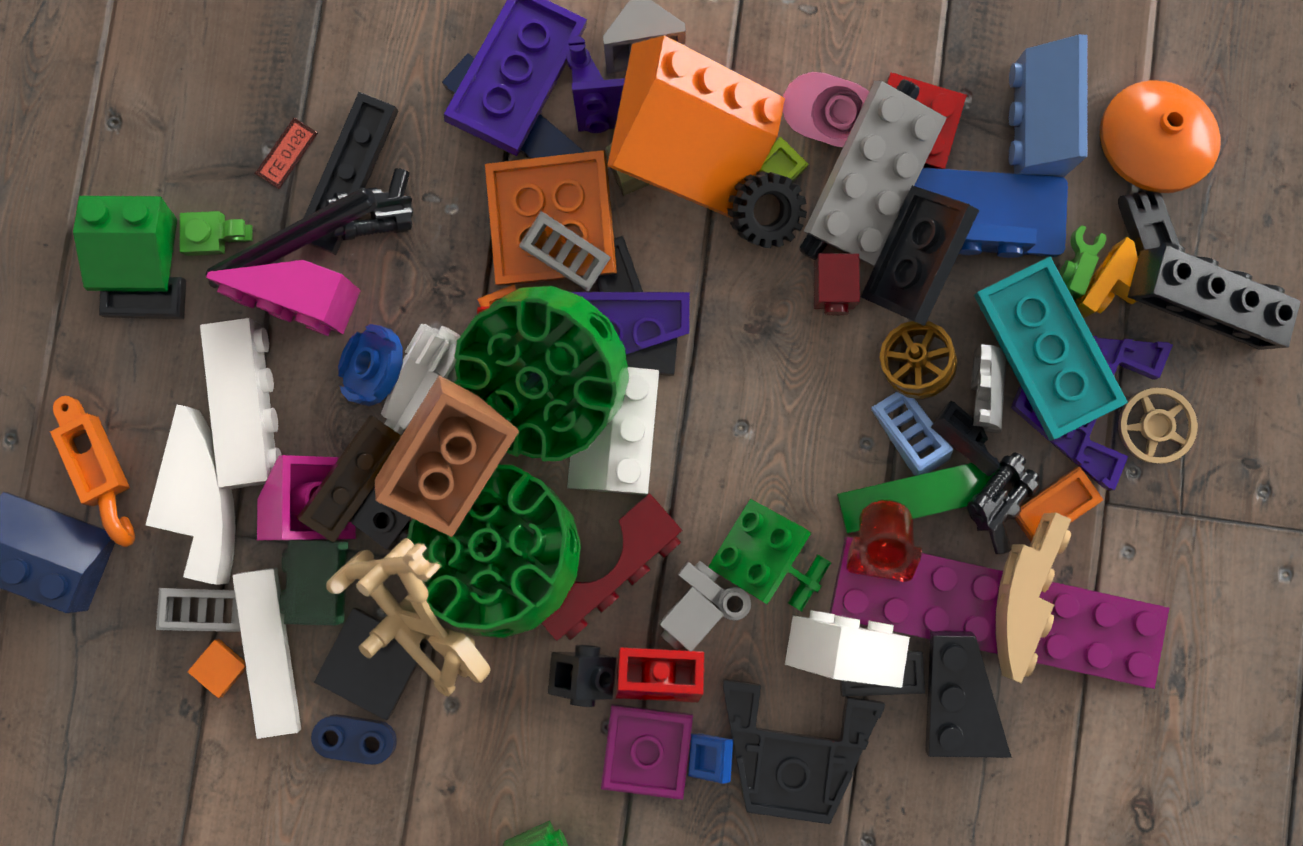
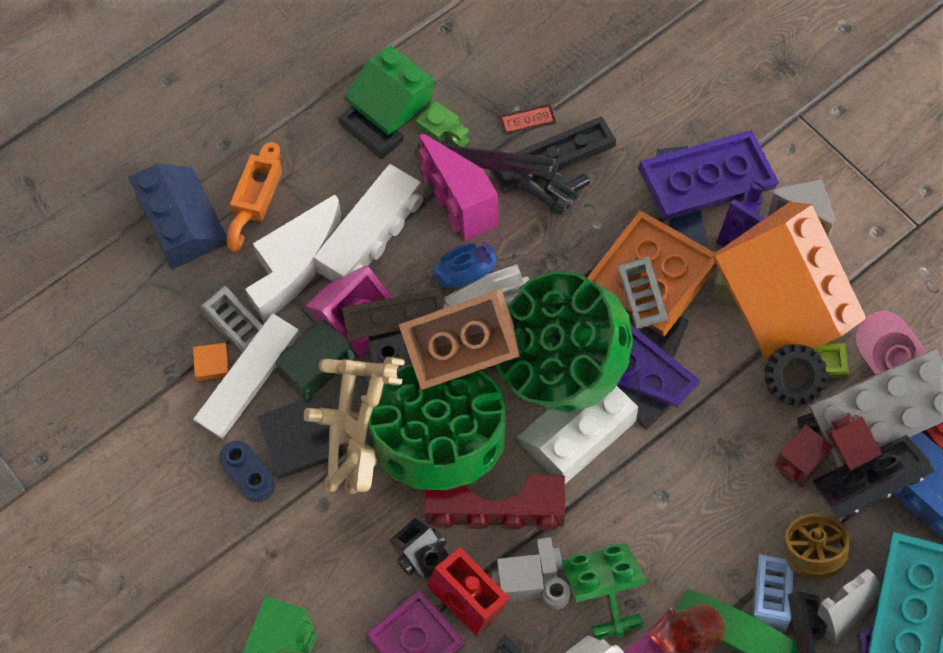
camera: 45 degrees right, 20 degrees down
(876, 236) = (852, 440): none -> dark red brick

